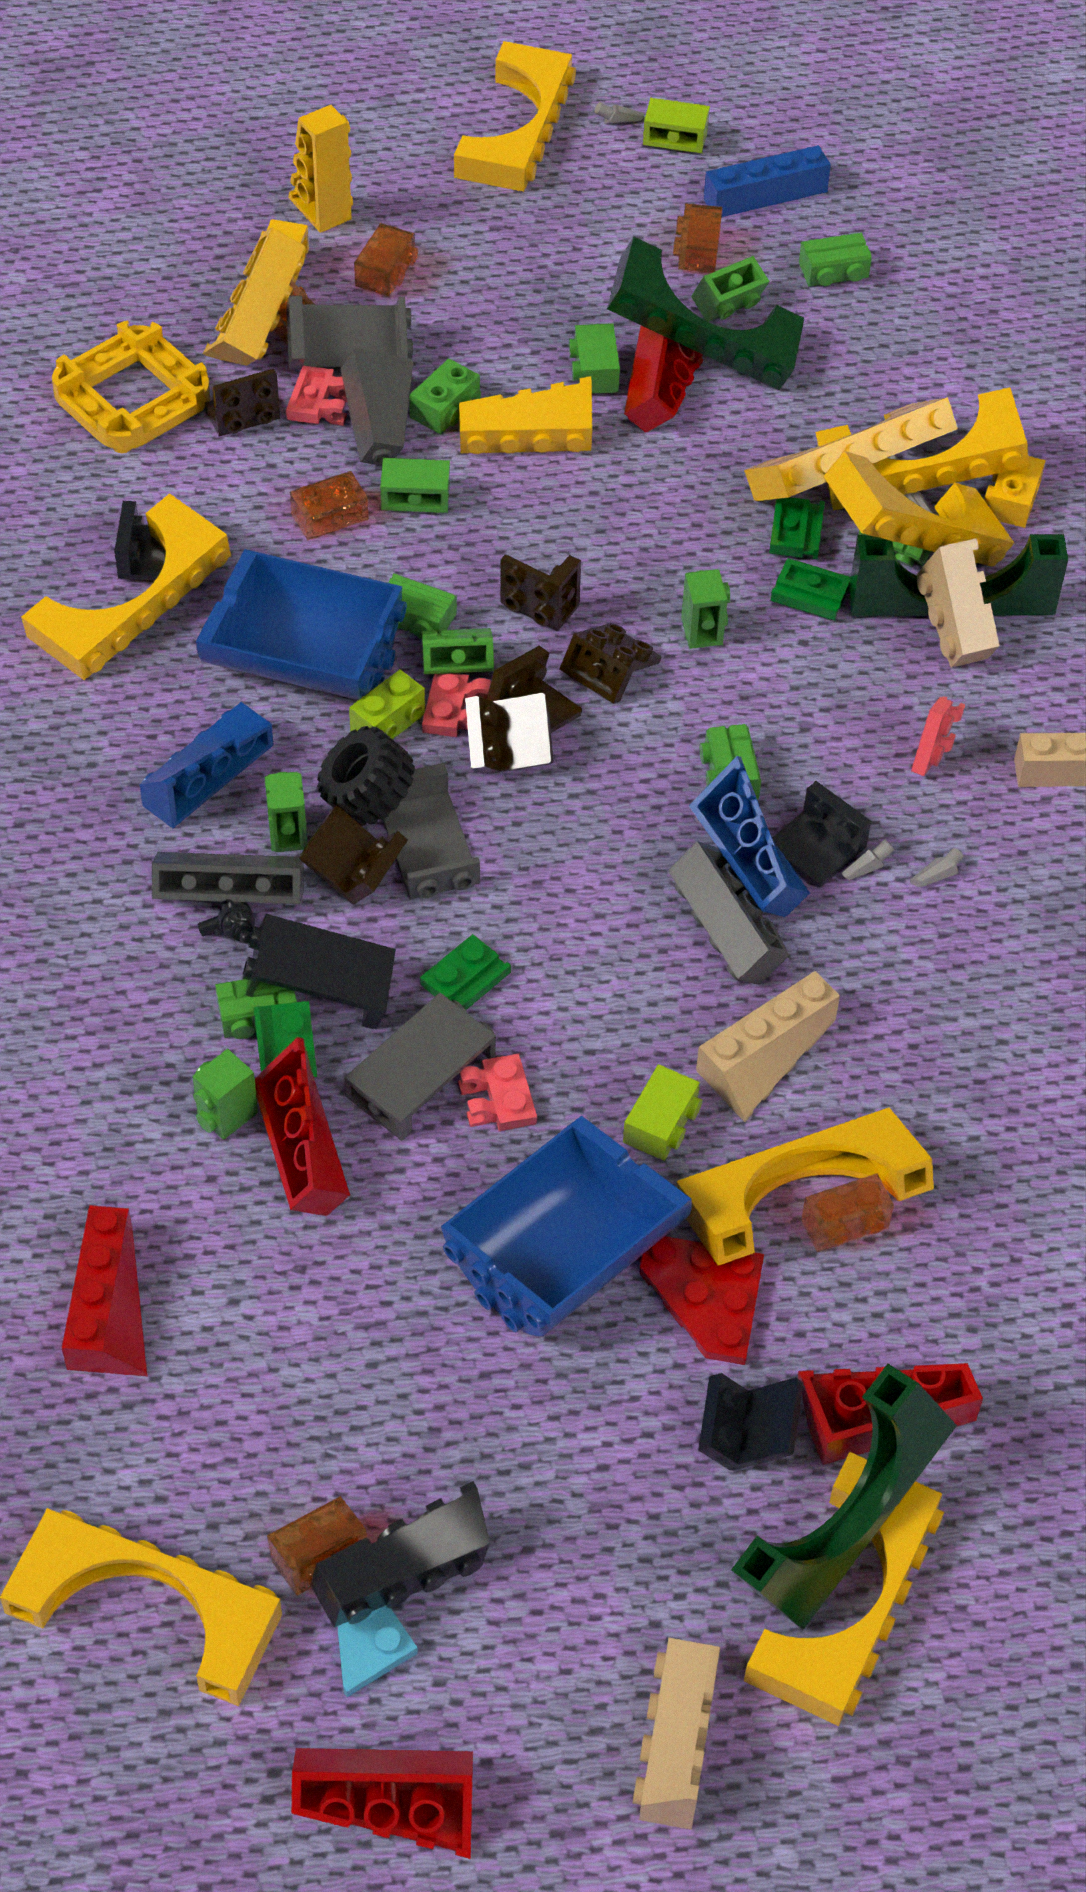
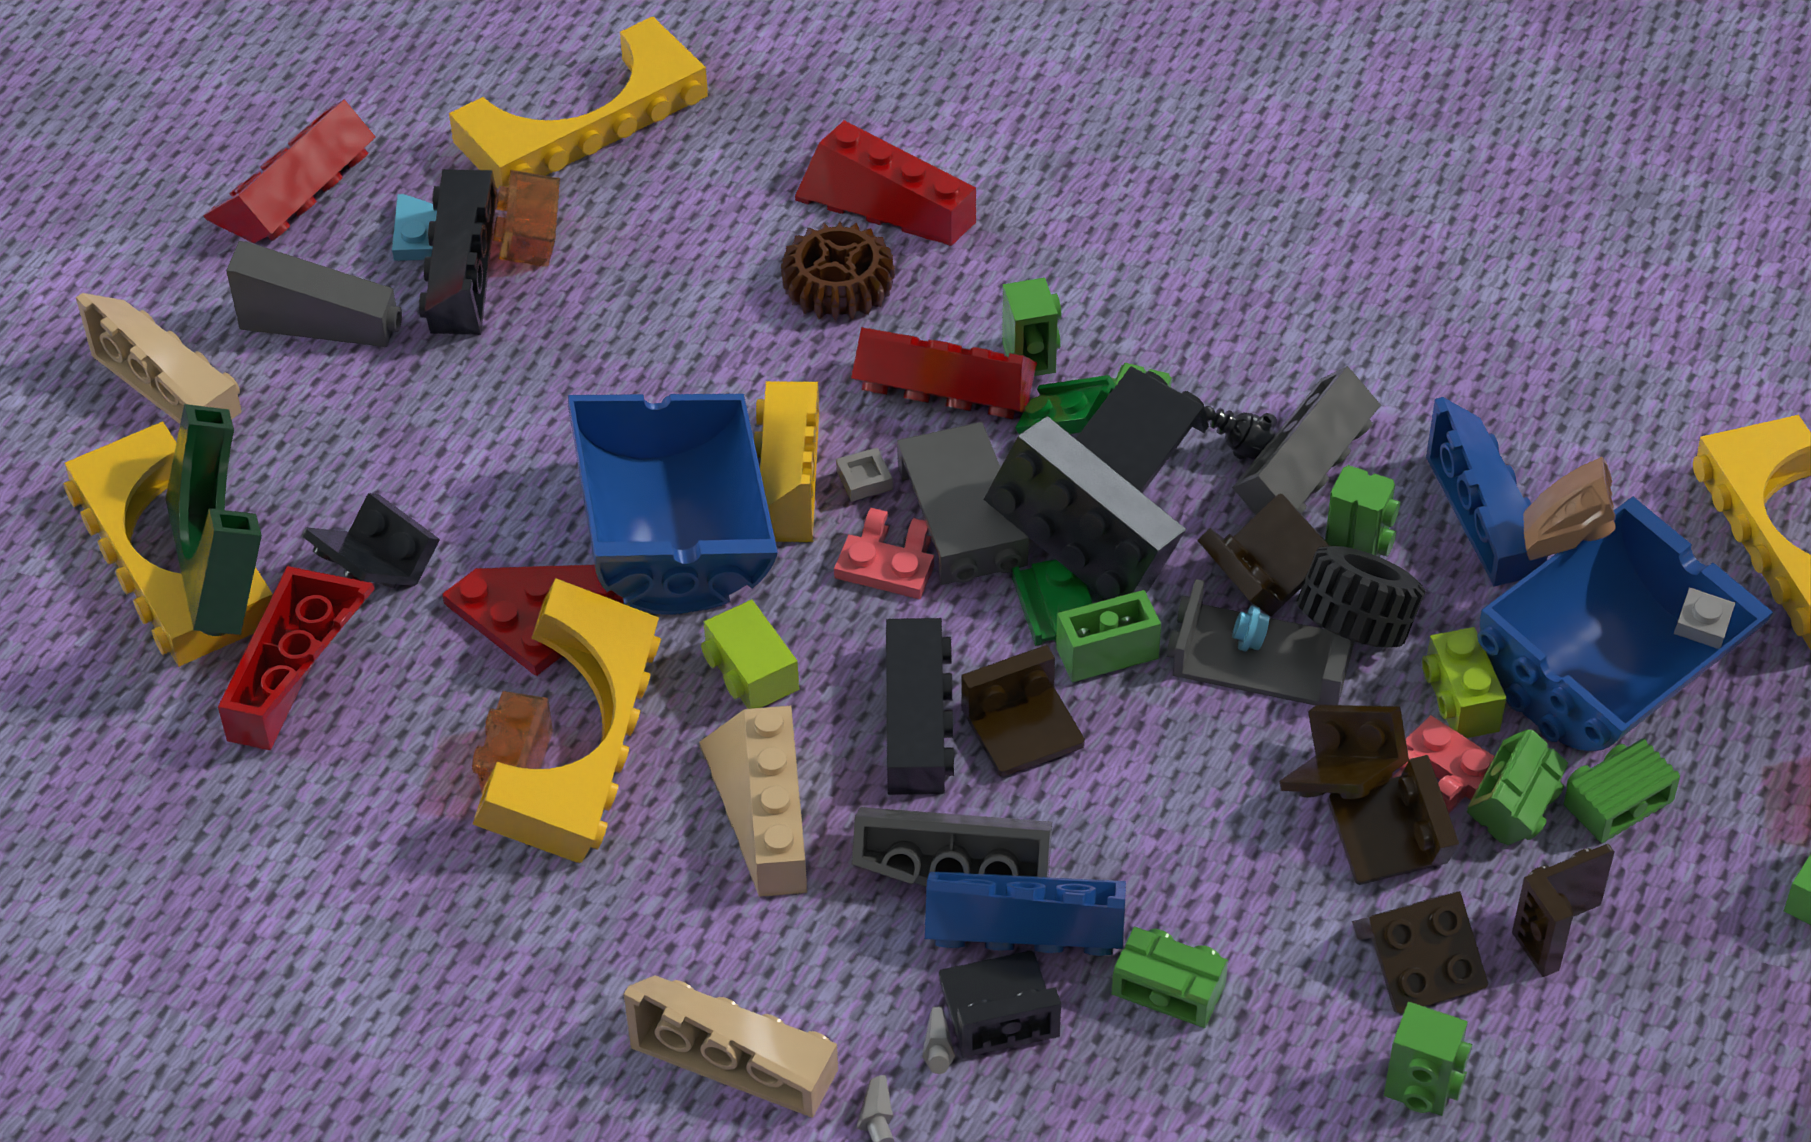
camera: 125 degrees right, 5 degrees down
(234, 1298) = (837, 271): none -> reddish brown gear
(236, 662) = (1571, 511): none -> medium nougat slope
(279, 574) = (1704, 618): none -> light grey plate
(410, 951) = (1083, 512): none -> black brick
(415, 1214) = (789, 456): none -> yellow wedge
(423, 839) = (1250, 629): none -> medium azure plate
(432, 1146) = (864, 474): none -> light grey plate
(491, 910) = (1108, 635): none -> bright green brick
(531, 1655) = (307, 299): none -> dark grey slope
(588, 936) = (1019, 712): none -> dark brown bracket
(625, 998) = (915, 706): none -> black brick
(964, 957) = (730, 1043): none -> tan wedge

